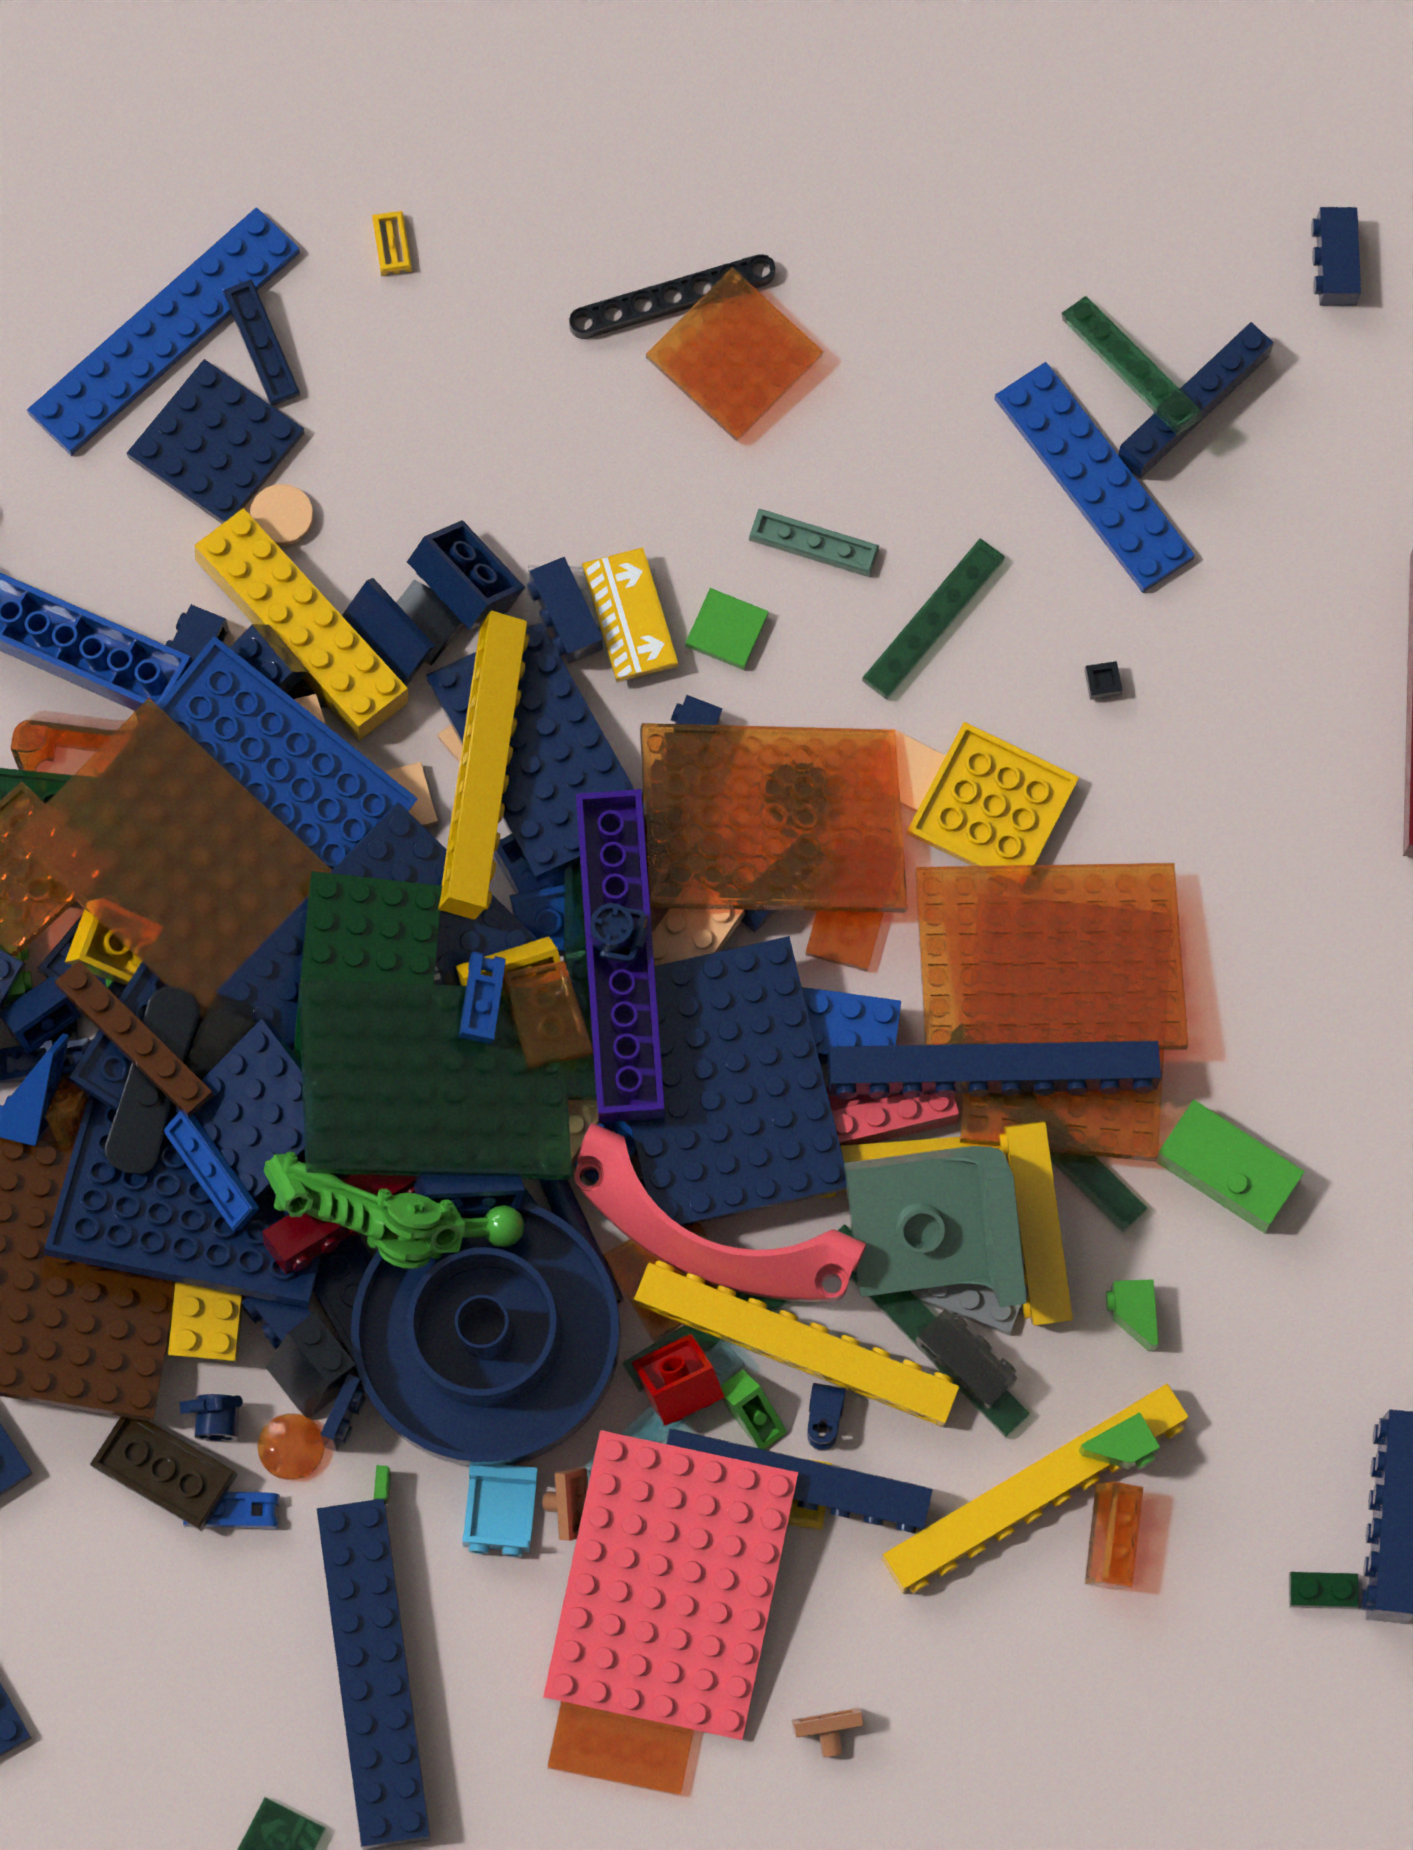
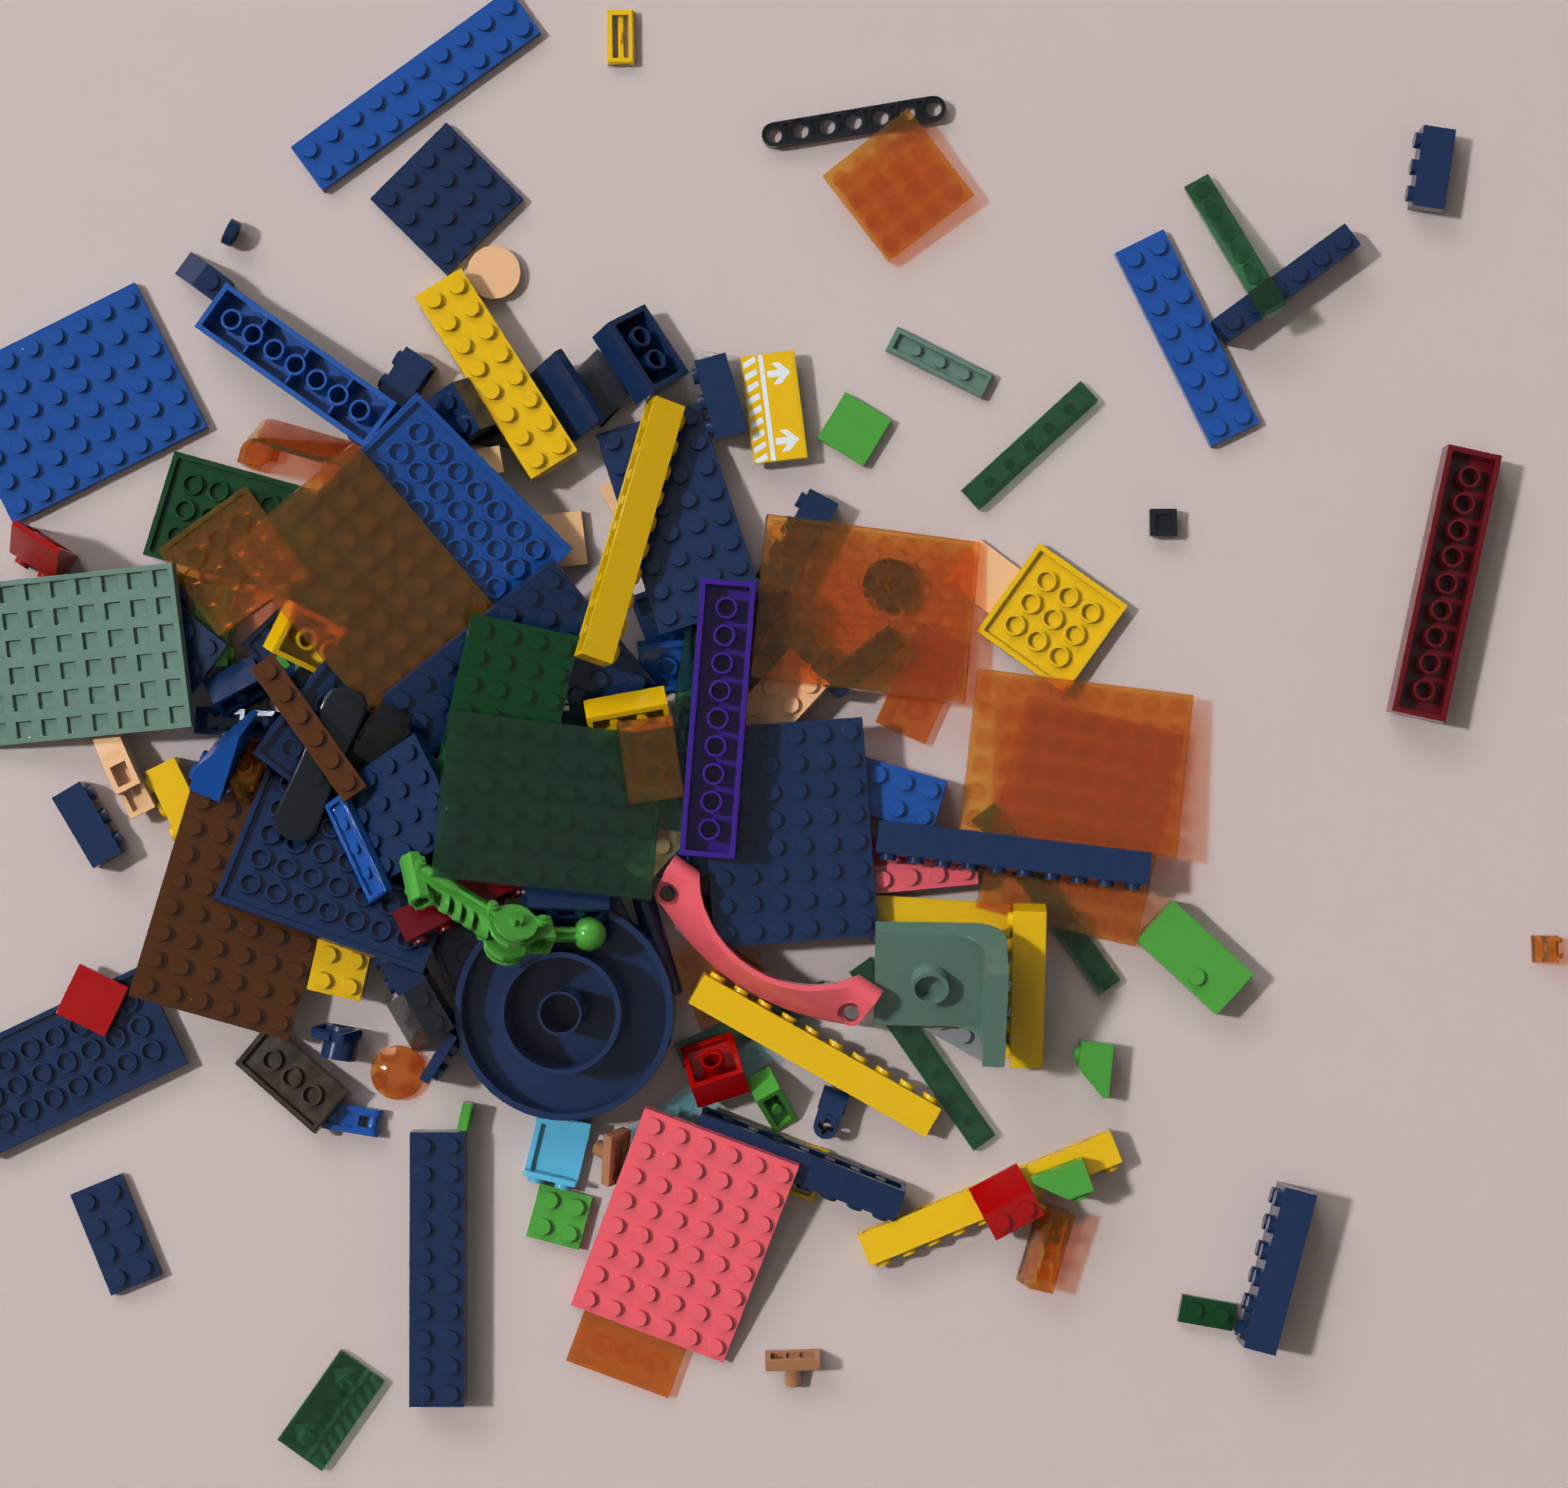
camera: 10 degrees right, 15 degrees up
(261, 342) = (496, 115): dark blue tile -> none
(482, 998) = (598, 743): blue plate -> none
(513, 1591) = (559, 1216): none -> bright green plate
(613, 932) = (714, 704): dark blue piece -> none
(967, 1359) = (952, 1087): clear smoke brick -> none
(1057, 1481) = (1006, 1201): none -> red slope

